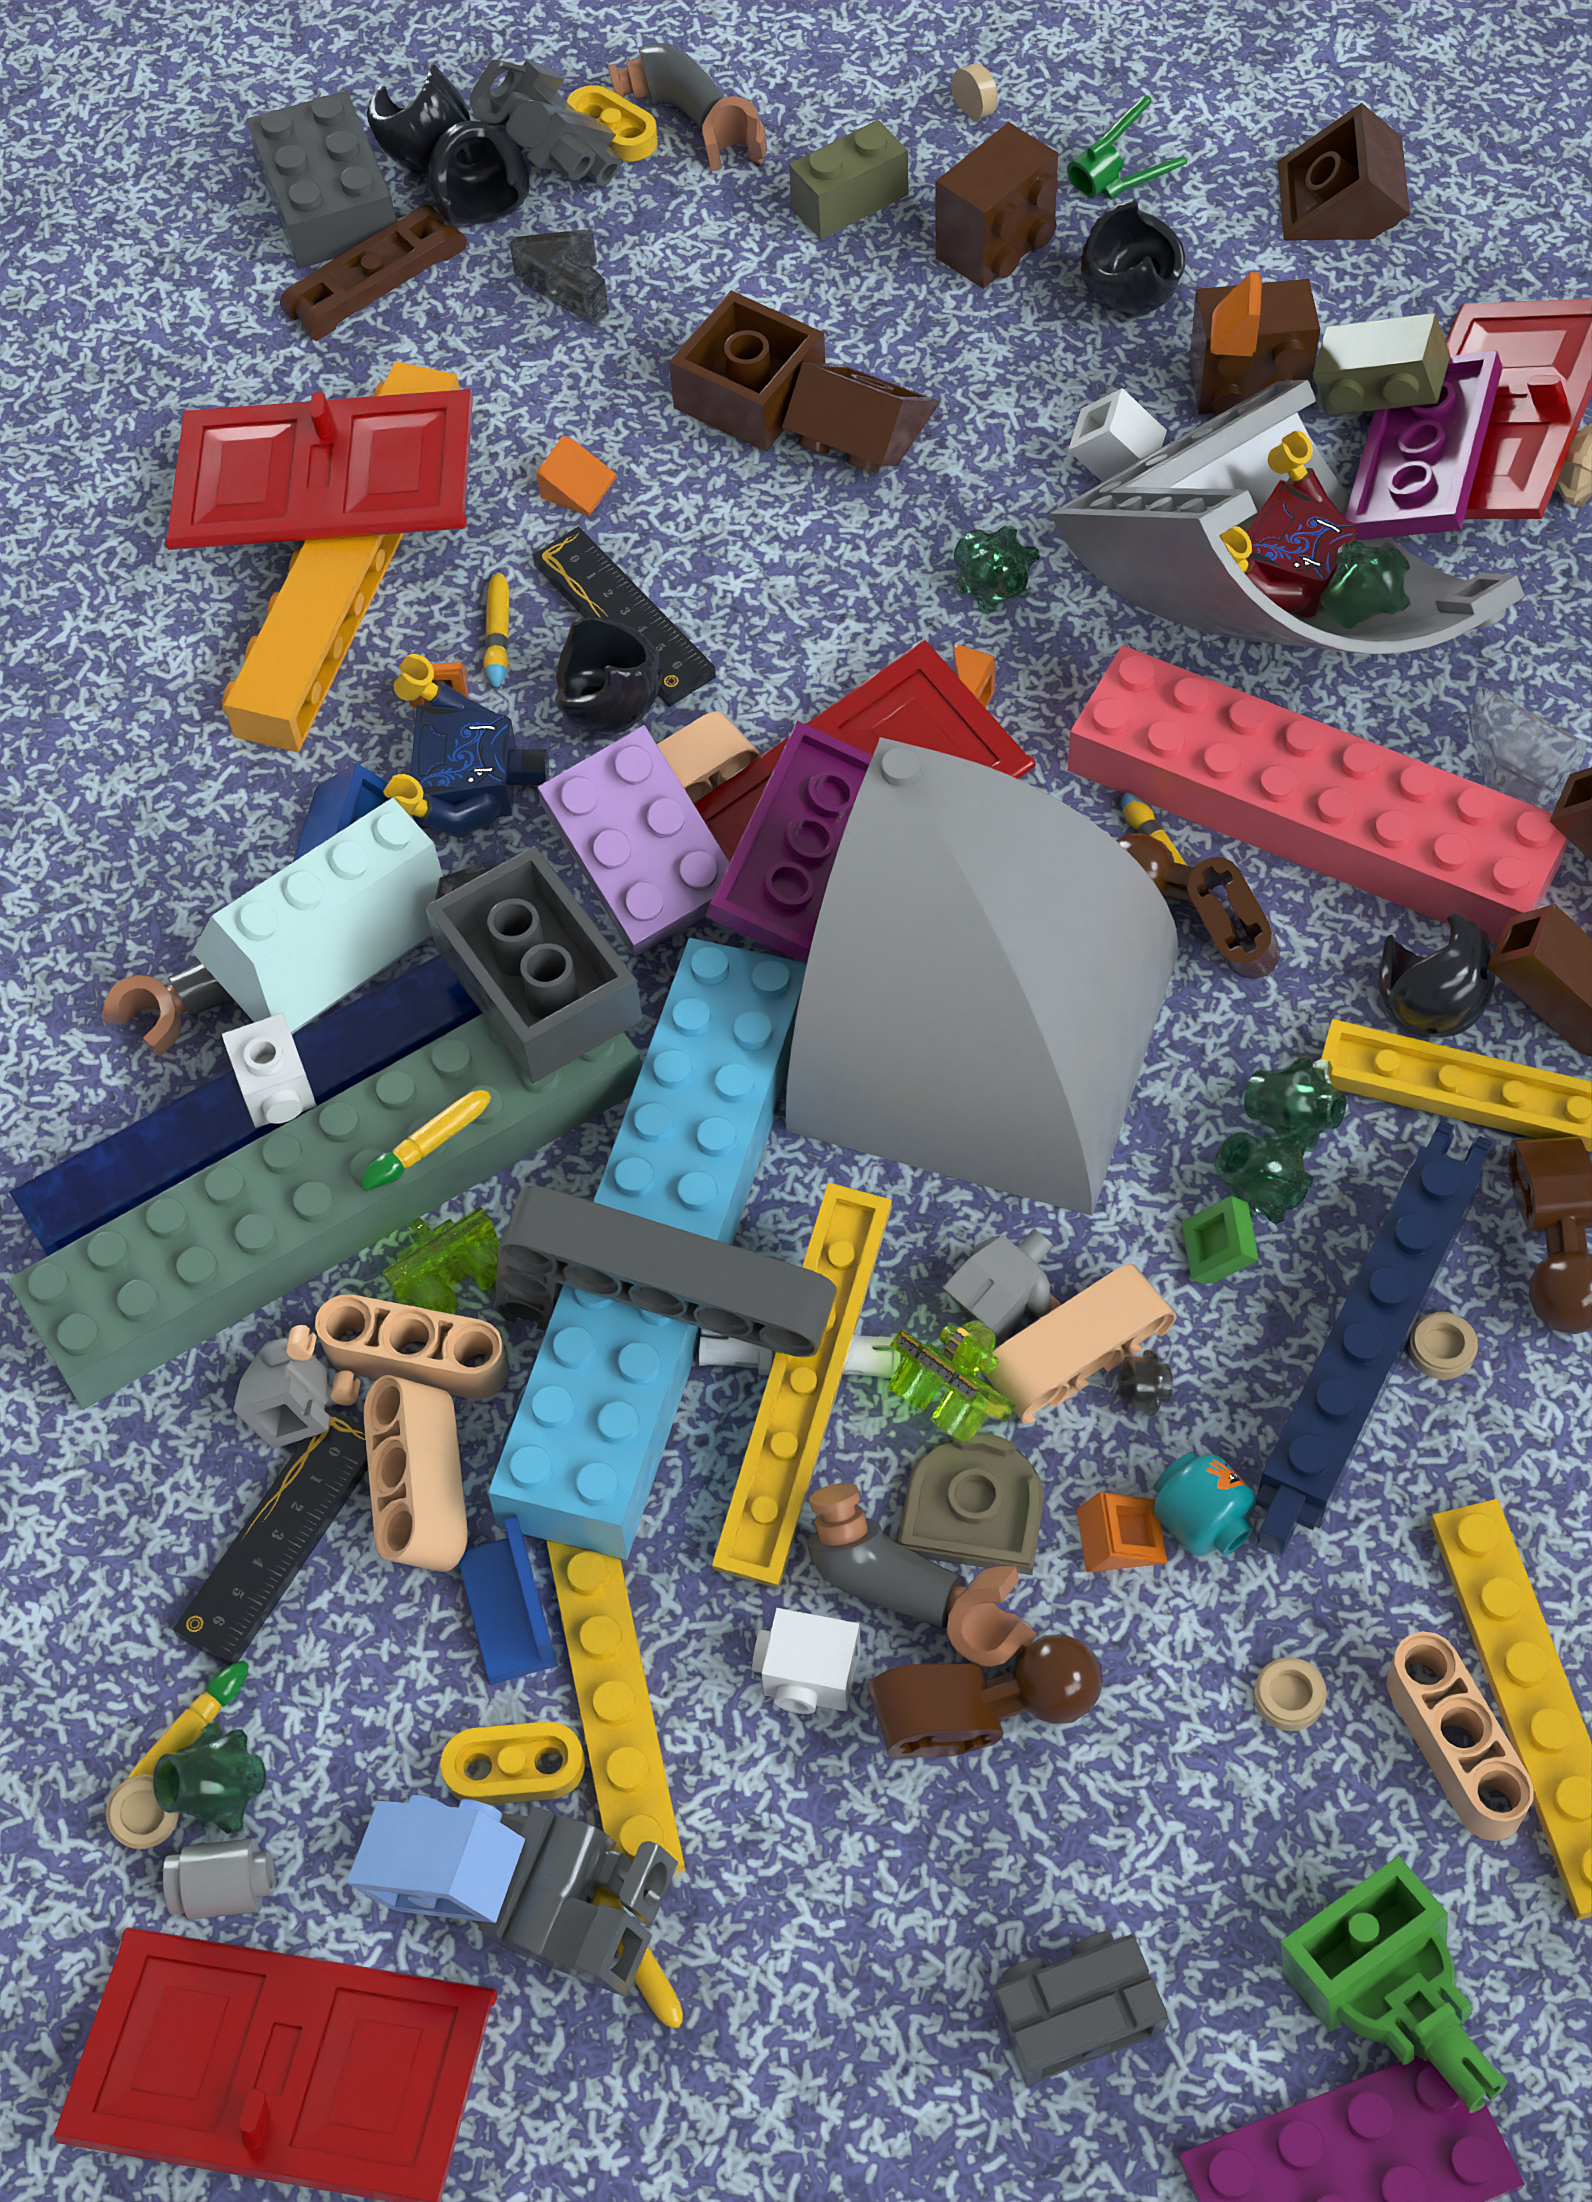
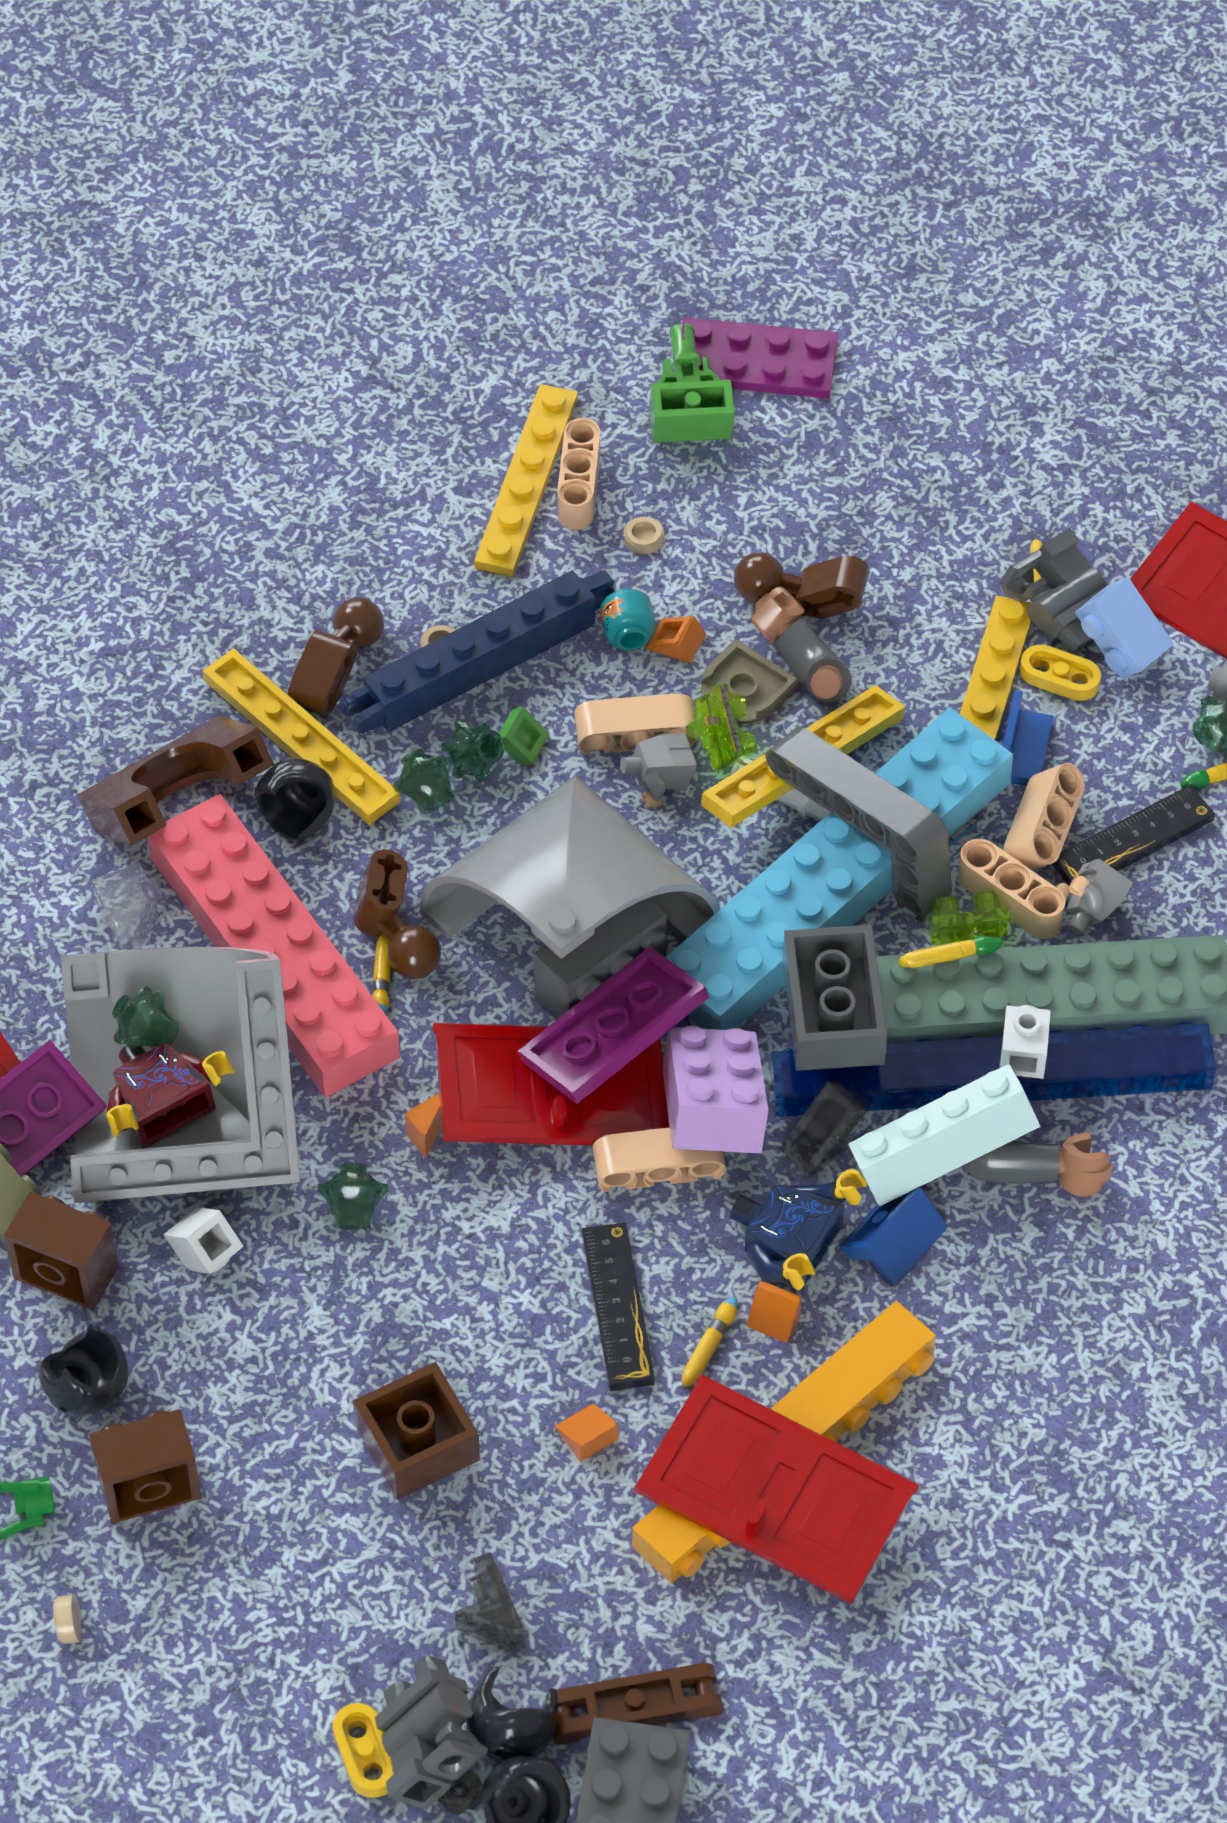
camera: 155 degrees left, 5 degrees down
(606, 676) = (659, 1217): black piece -> none
(678, 80) = (290, 1752): piece -> none
(807, 1661) = (879, 644): white brick -> none
(849, 179) = (225, 1574): olive brick -> none
(856, 414) = (347, 1360): reddish brown slope -> none
(1078, 2006) = (840, 455): dark grey brick -> none
(1145, 1383) = (614, 687): clear smoke plate -> none
(1237, 319) = (86, 1206): orange slope -> none

